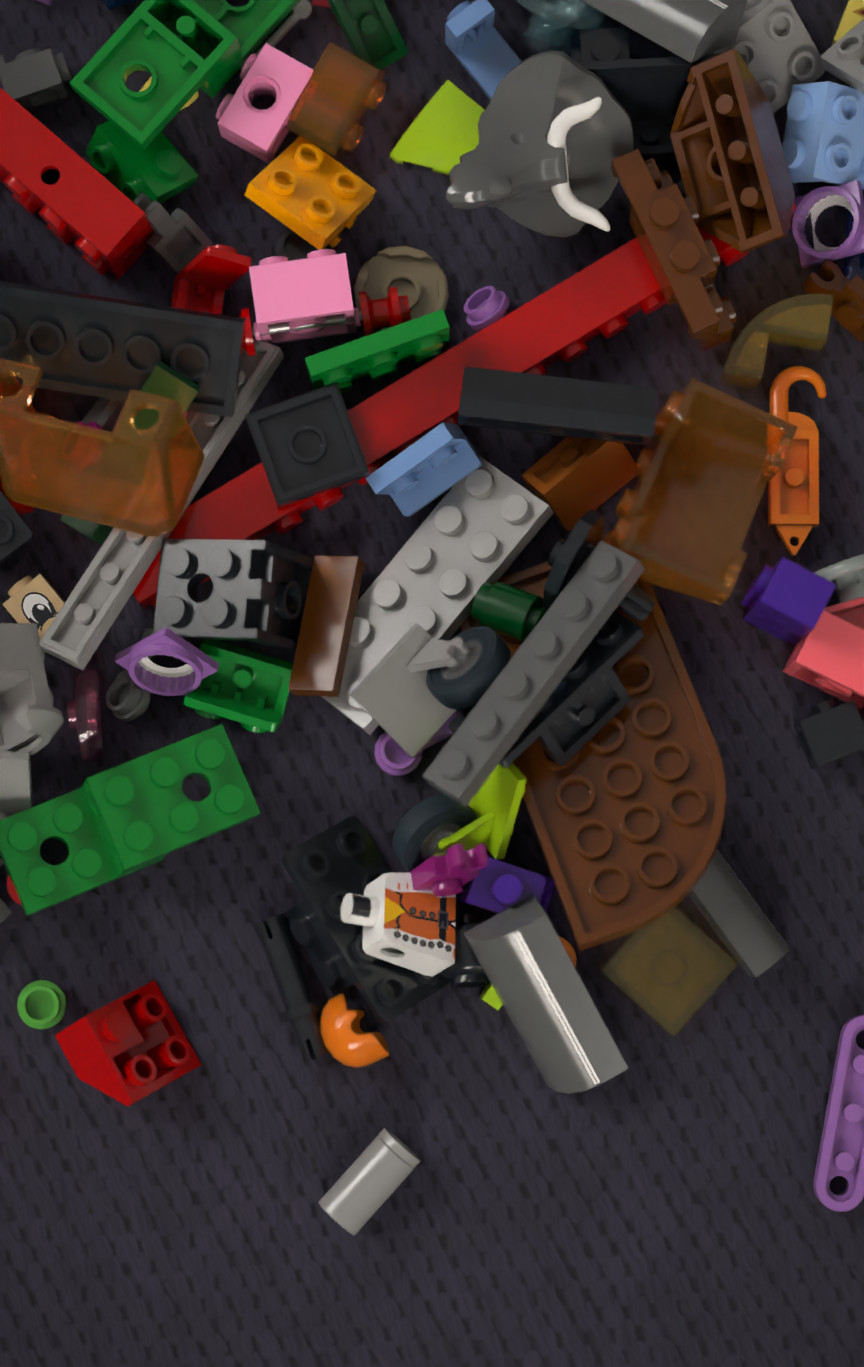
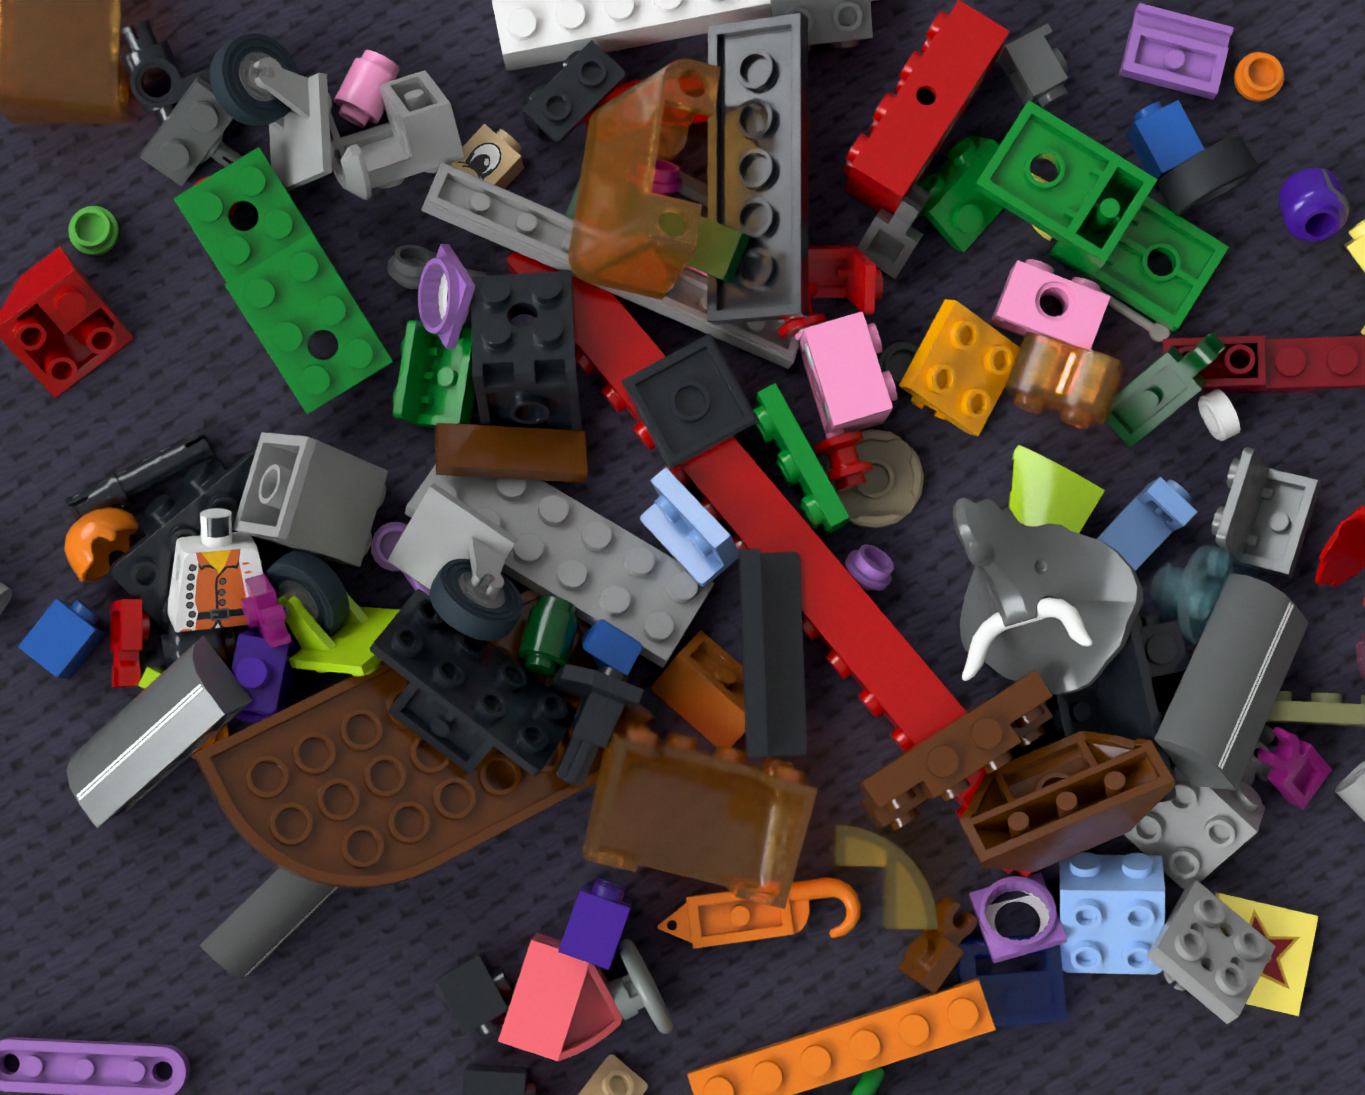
camera: 75 degrees right, 0 degrees up
(85, 714) = (389, 227): clear pink plate -> none
(343, 819) = (311, 498): none -> light grey slope
(439, 1080) = (64, 637): none -> blue brick
(447, 1020) = (127, 631): none -> red plate
(528, 555) = (611, 646): none -> blue slope
(533, 673) = (473, 665): dark grey plate -> none
(669, 969) = (206, 859): clear yellow tile -> none

